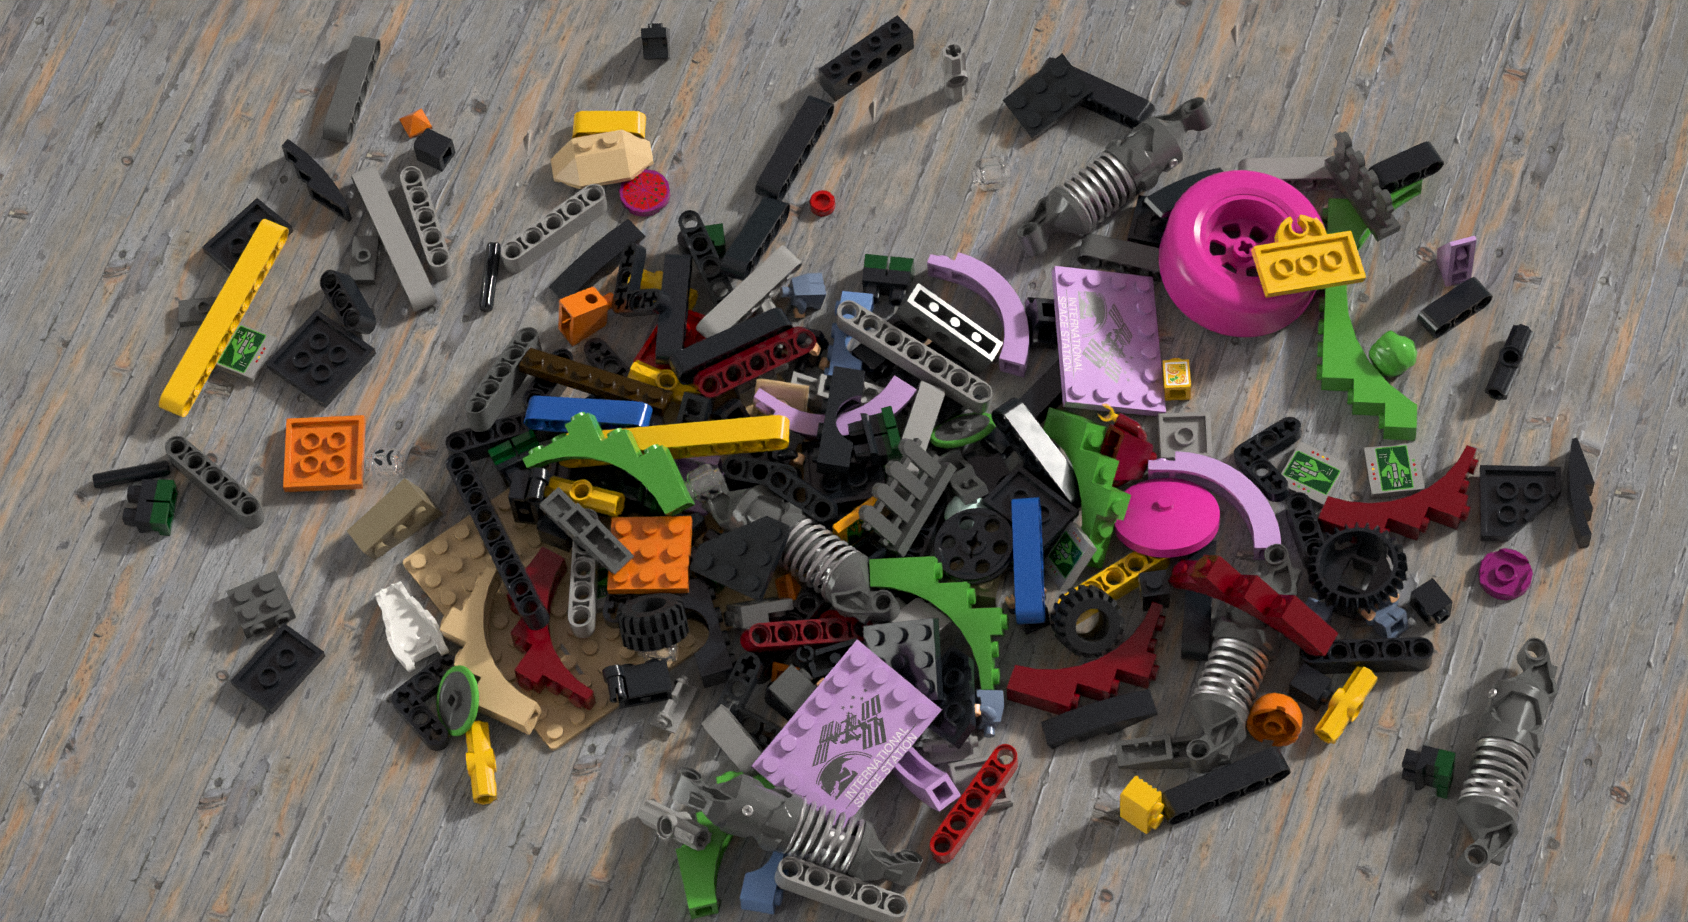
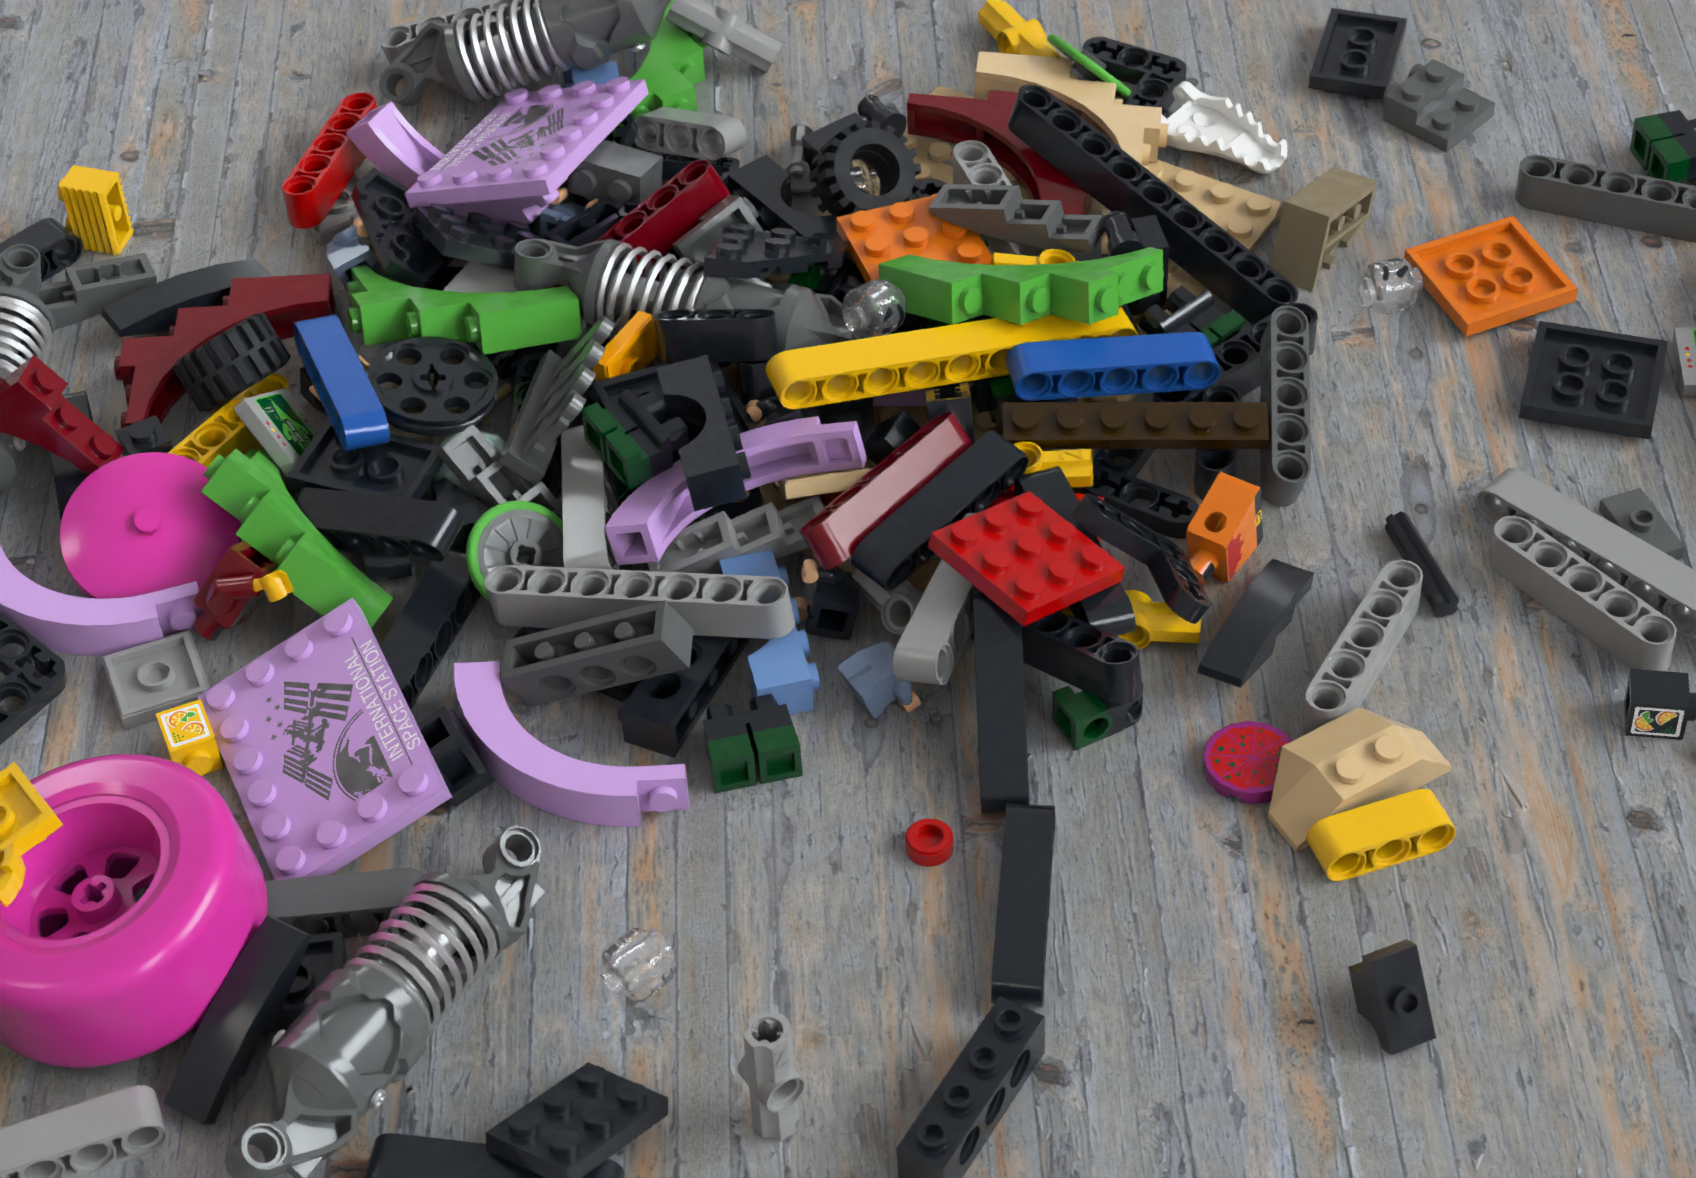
camera: 155 degrees right, 15 degrees down
(348, 302) = (1612, 446): black beam -> none
(708, 279) = (1026, 558): none -> red plate

